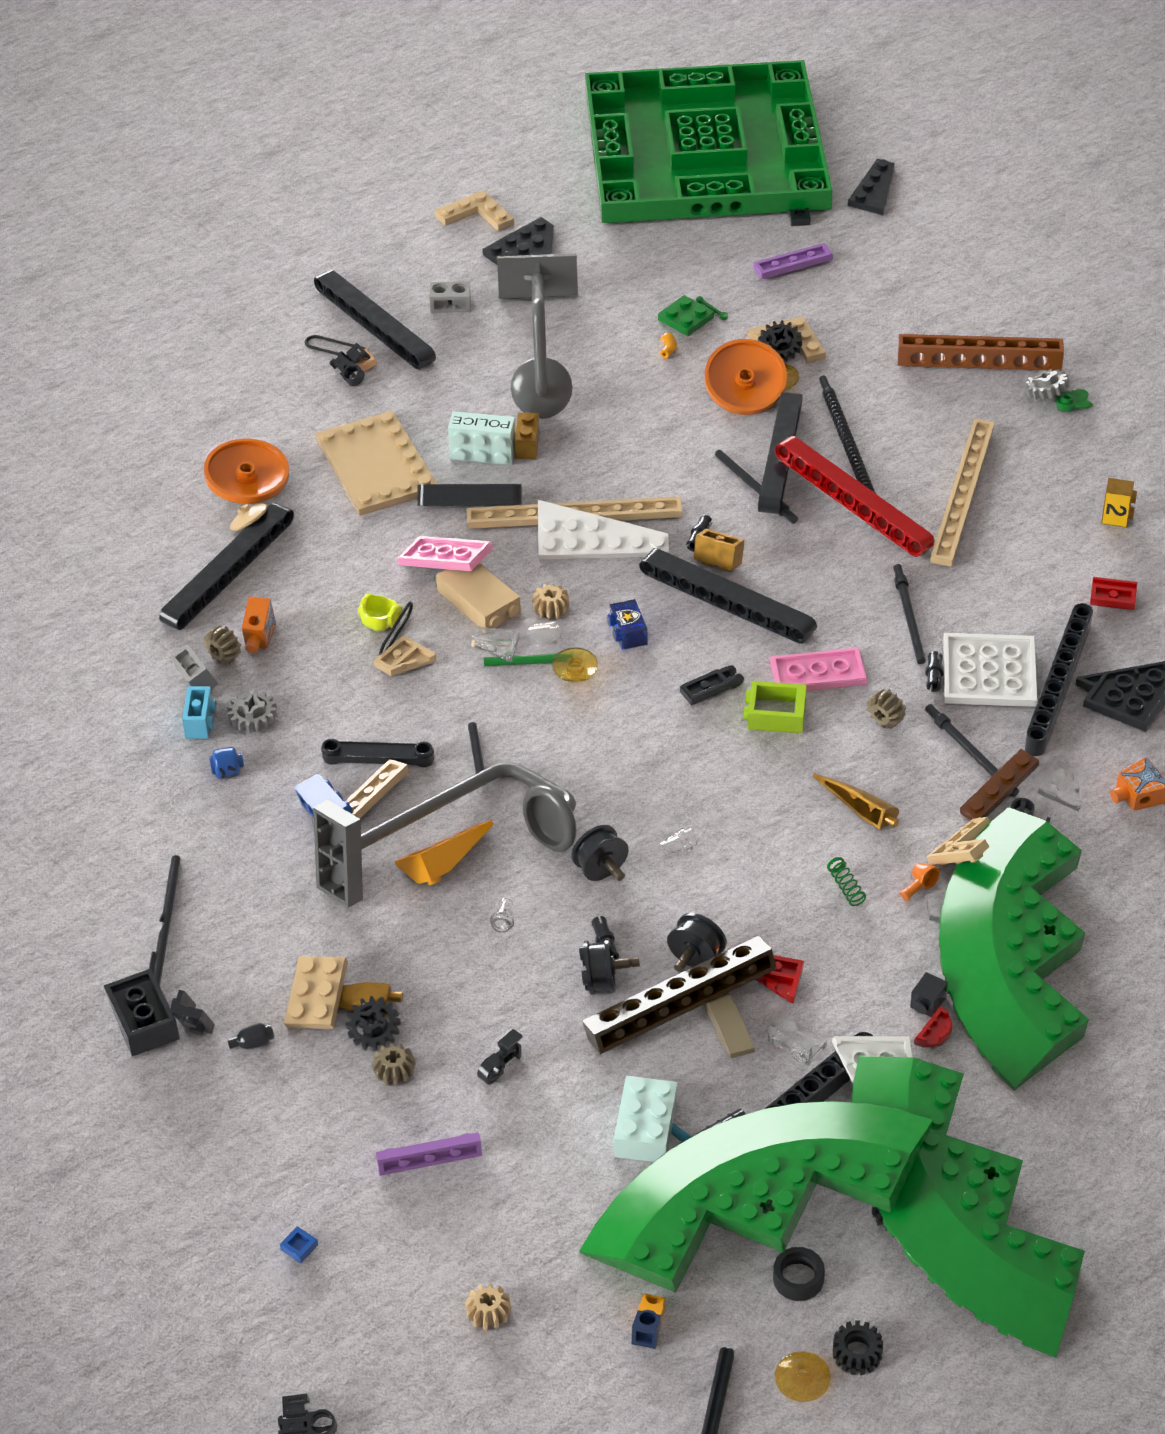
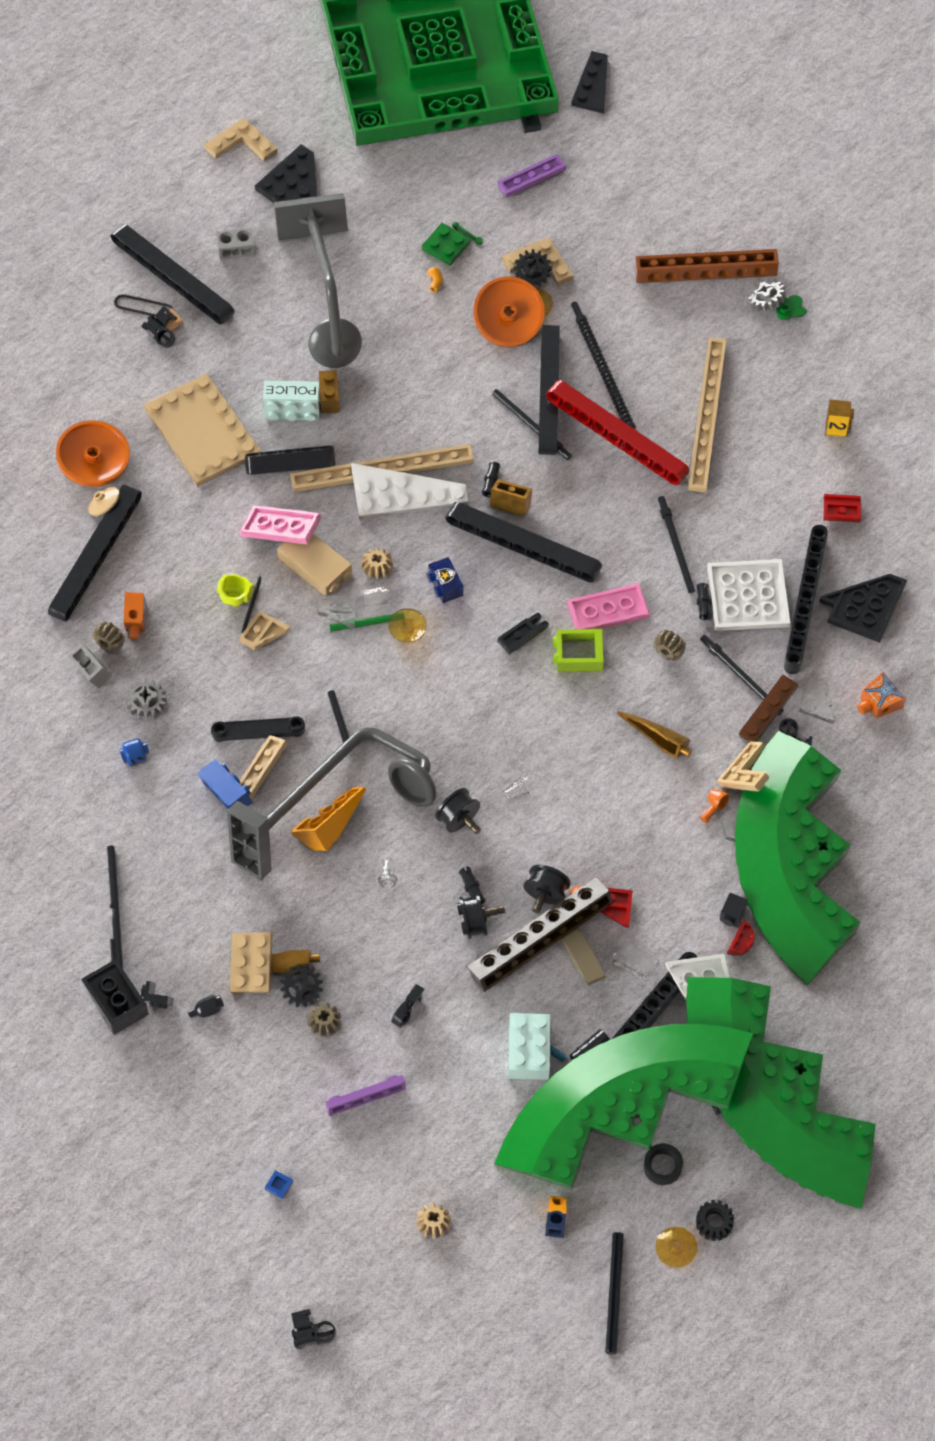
camera: 10 degrees left, 15 degrees up
(198, 712) = (101, 706): medium azure brick -> none
(841, 867) = (649, 798): green piece -> none

